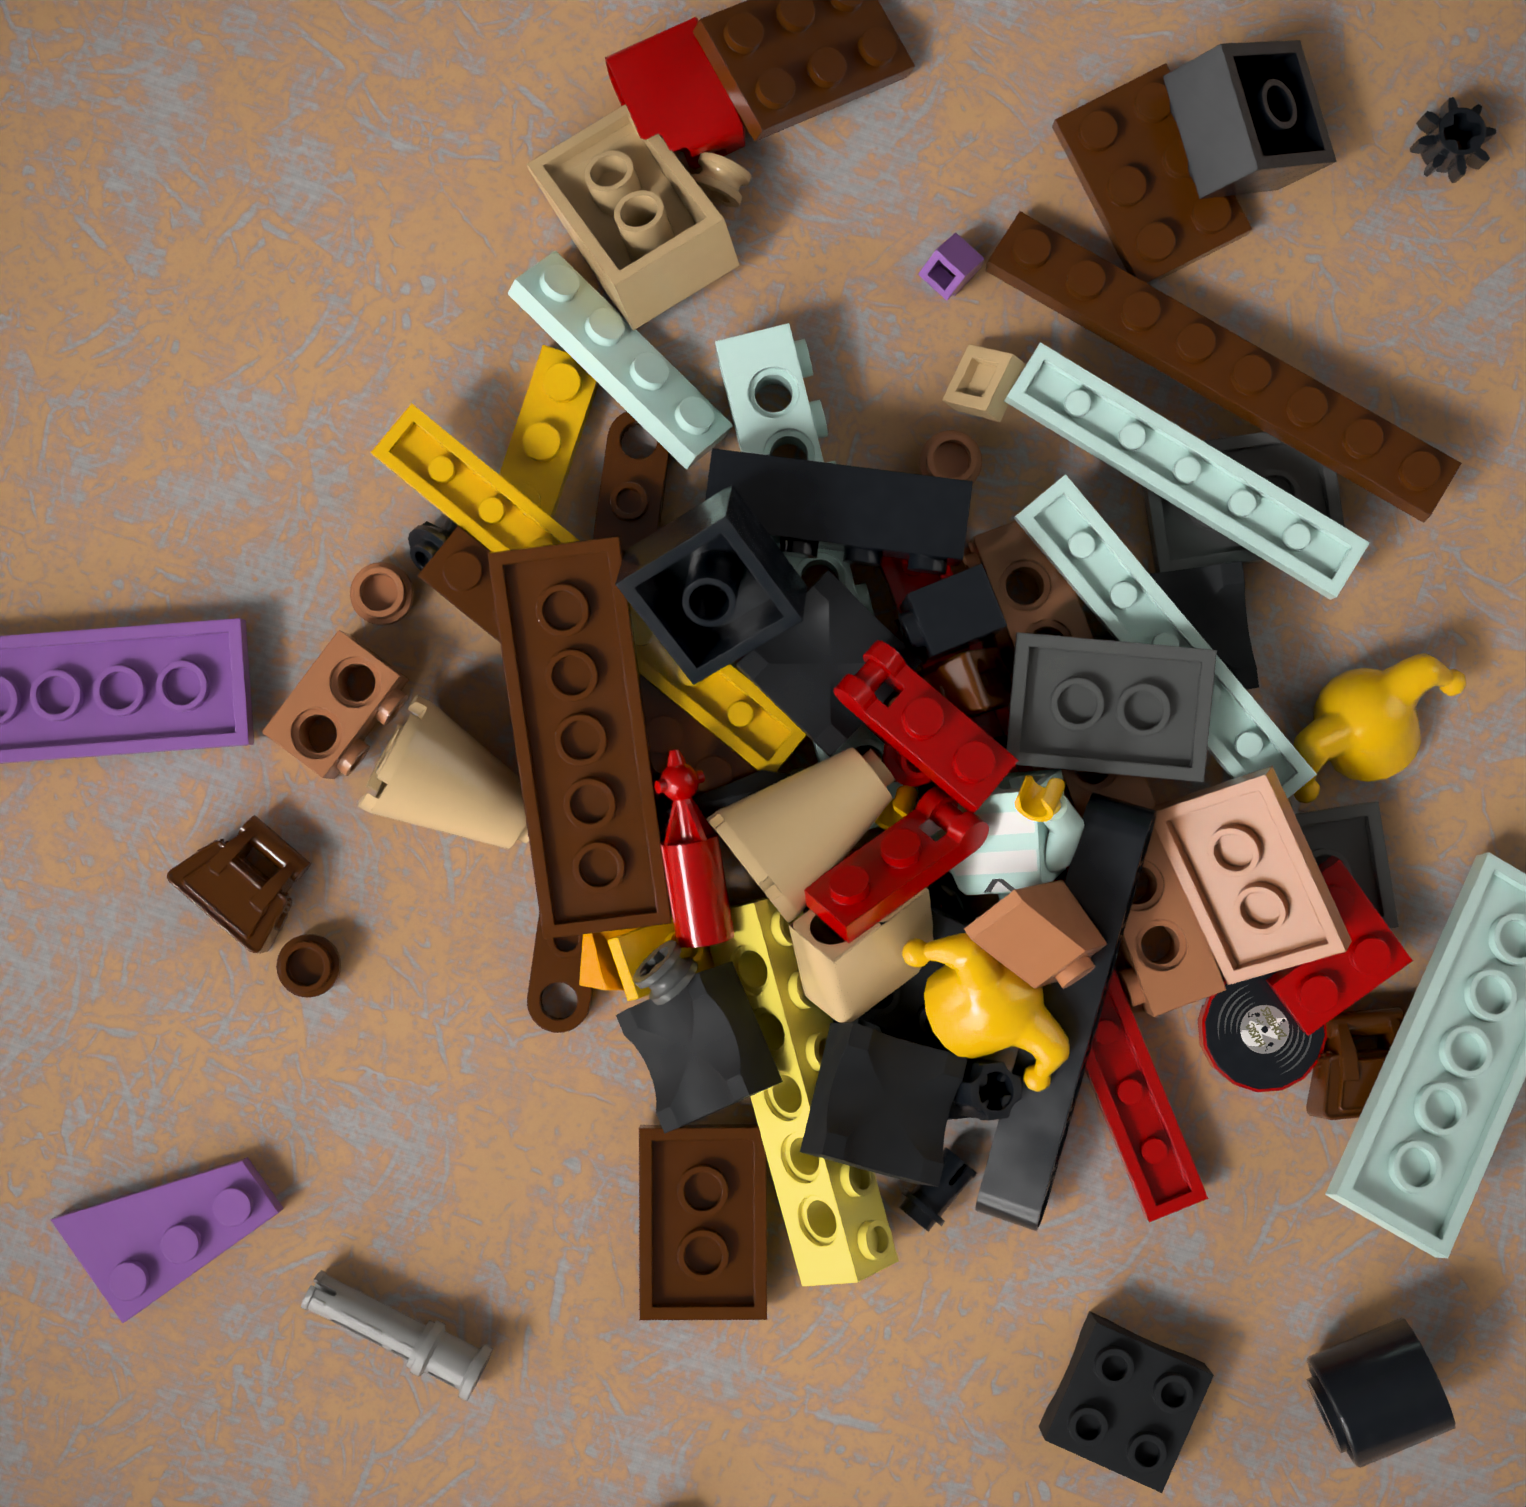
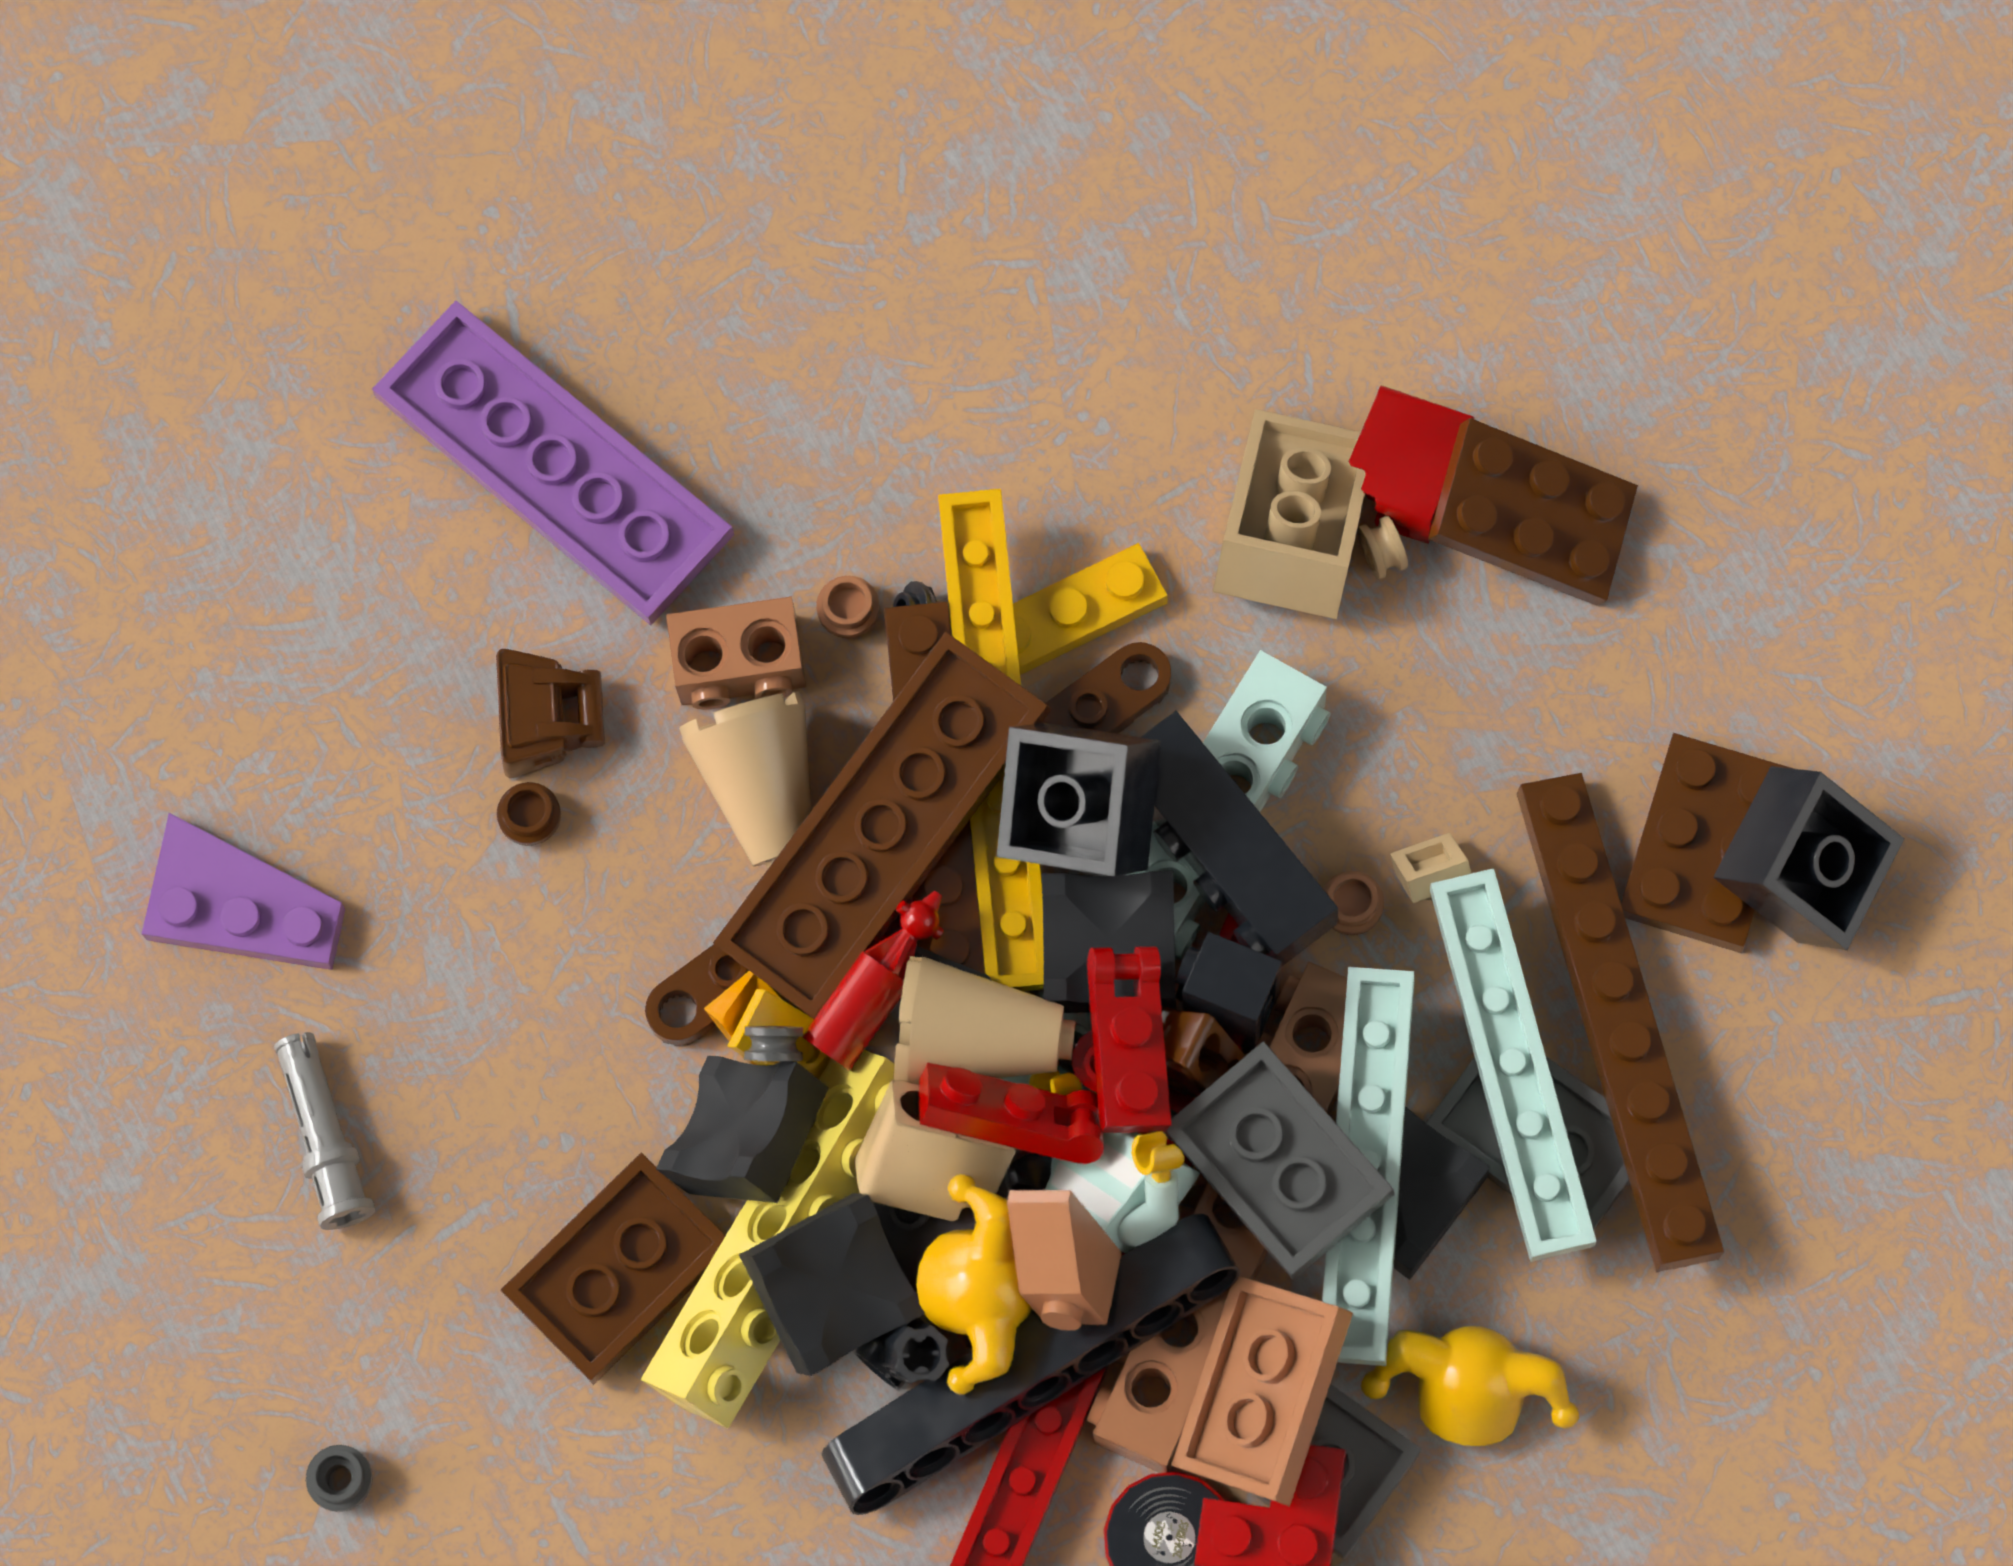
camera: 50 degrees right, 15 degrees down
(620, 359) = (1183, 602): light aqua plate -> none
(928, 1203) = (803, 1417): black pin -> none
(959, 259) = (1490, 764): medium lavender piece -> none
(1462, 126) = (1974, 1034): black gear -> none

